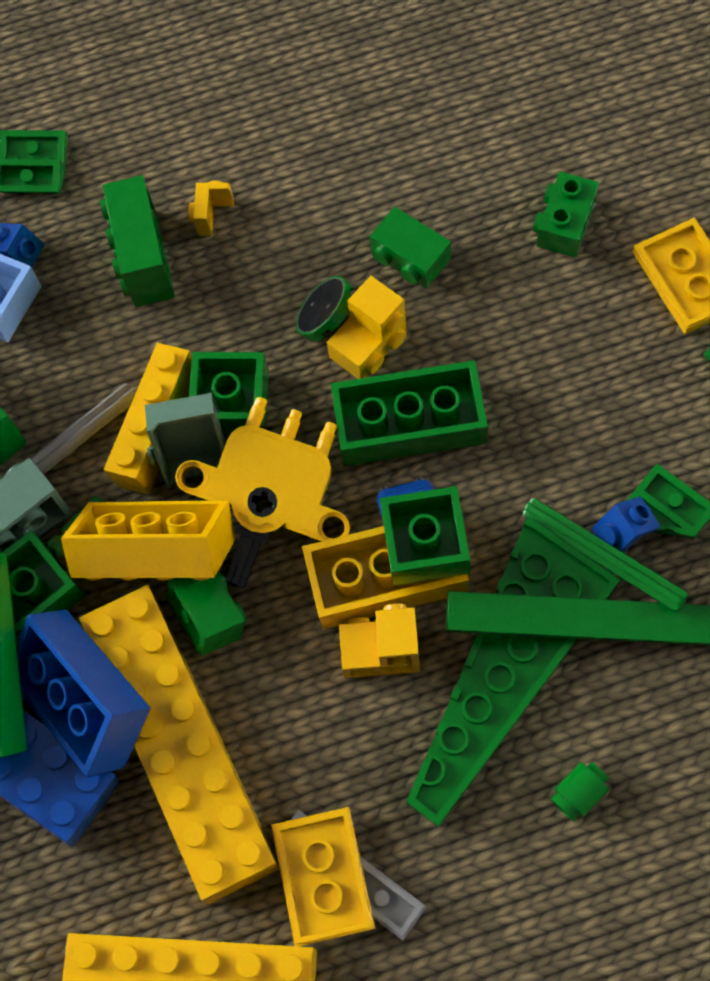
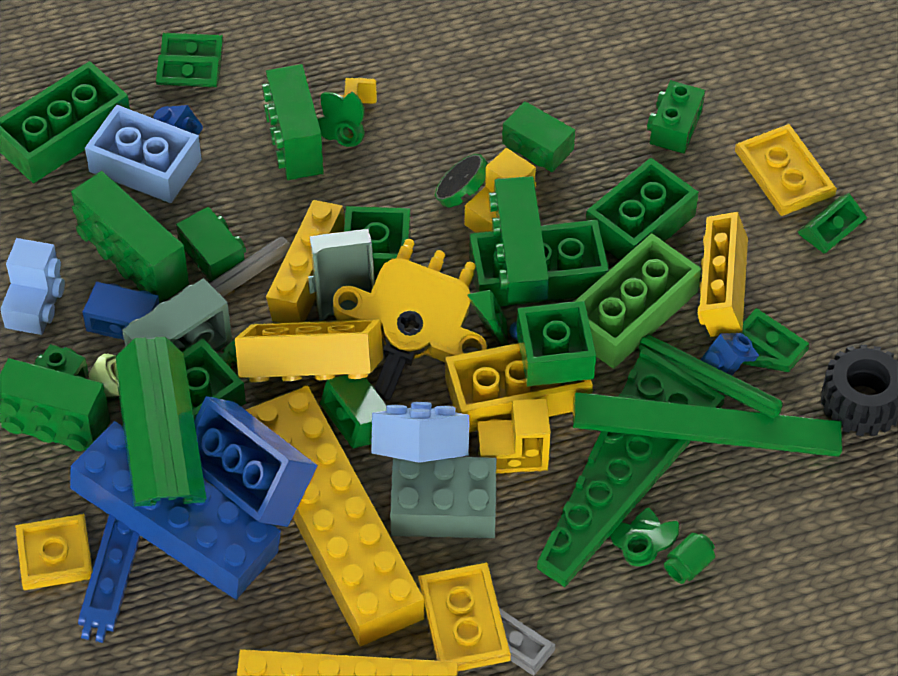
camera: 10 degrees left, 15 degrees down
(48, 396) = (210, 243): none -> green brick
(191, 233) = (339, 116): none -> green plate
(272, 649) = (420, 432): none -> light blue brick
(300, 717) = (444, 498): none -> sand green brick
(355, 487) = (491, 315): none -> green slope
(386, 394) = (520, 239): none -> green brick
(517, 457) = (638, 297): none -> bright green brick
(527, 342) = (643, 204): none -> green brick
(529, 757) = (644, 534): none -> green plate
(619, 424) = (723, 275): none -> yellow brick

